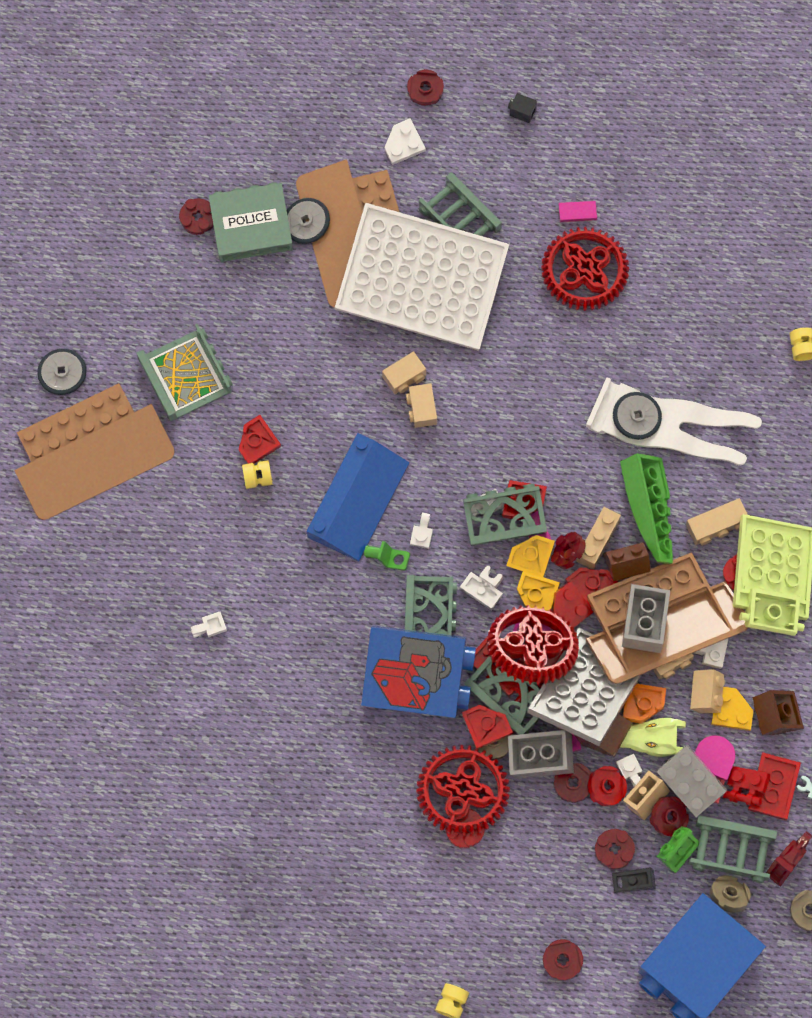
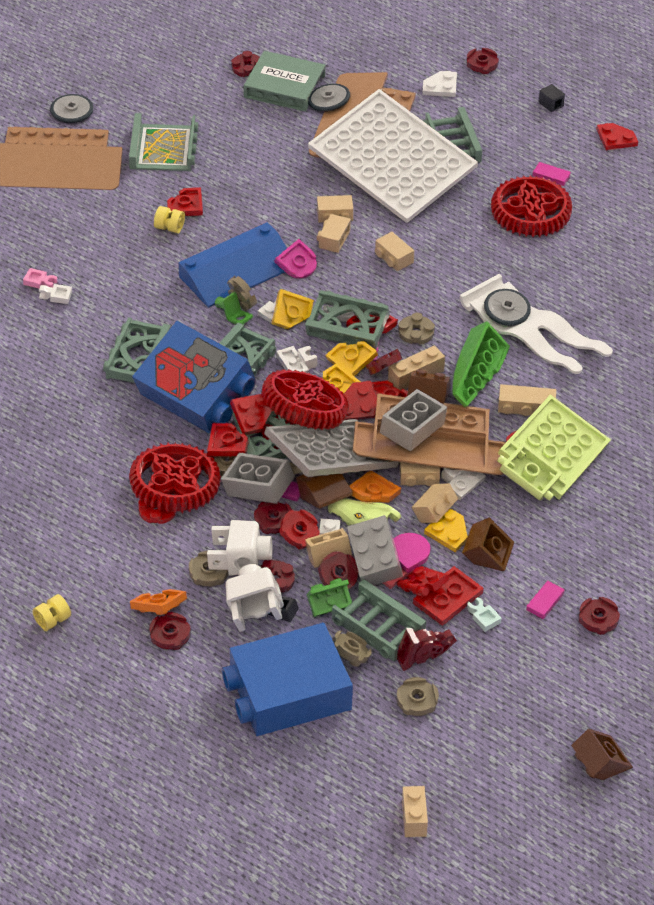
camera: 25 degrees right, 25 degrees down
(178, 617) = (36, 278): none -> bright pink plate
(343, 633) = (126, 341): none -> sand green fence
(384, 533) = (242, 289): none -> dark tan plate
(409, 460) = (297, 260): none -> dark pink tile
(441, 527) = (291, 309): none -> yellow plate
(492, 399) = (394, 251): none -> tan brick
(492, 685) = (250, 413): none -> red plate
(535, 937) = (158, 602): none -> orange plate
(559, 863) = (204, 577): none -> dark tan plate
(572, 494) = (418, 321): none -> dark tan plate
(576, 839) = (243, 546): none -> white piece
(610, 126) = (616, 136): none -> red plate
(616, 886) = (253, 595): none -> white piece

